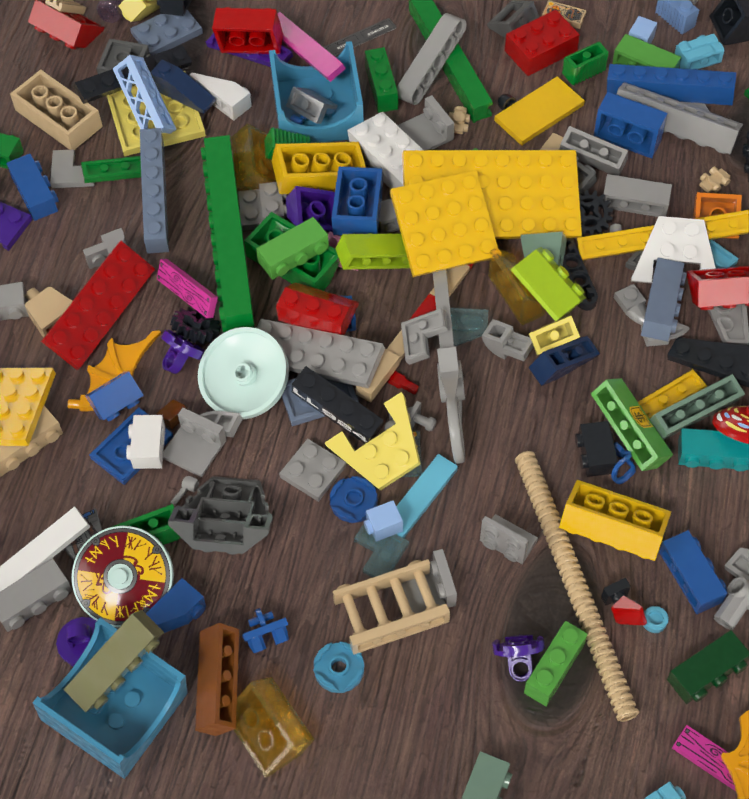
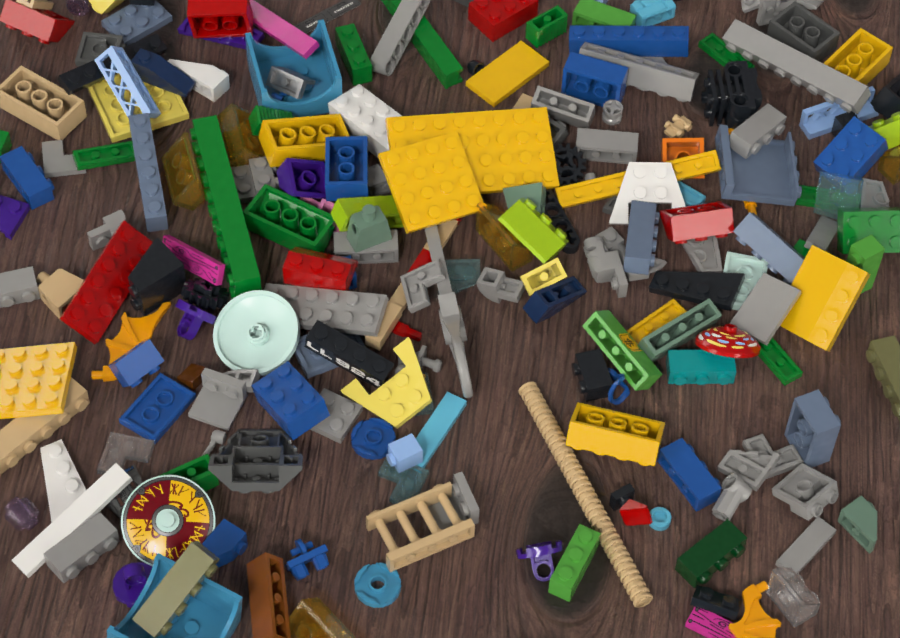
camera: 10 degrees left, 5 degrees down
(20, 515) = (61, 478): none -> white wing
(90, 486) = (123, 447): none -> clear tile
(145, 305) = (155, 278): none -> black slope
(147, 441) = (173, 401): white brick -> none
(189, 195) = (183, 174): none -> clear yellow slope
(269, 451) = (290, 400): none -> blue brick
(292, 248) = (290, 215): bright green brick -> none
(371, 286) = (382, 253): none -> light grey brick
(372, 268) = (368, 228): none -> sand green torso
(431, 127) = (407, 95): light grey bracket -> none
(459, 118) = (431, 85): tan piece -> none
(507, 538) = (518, 460): light grey bracket -> none
(622, 326) = (605, 265): none -> light grey plate
(646, 159) = (612, 112): none -> light grey wheel
(710, 725) = (716, 602): none -> black plate

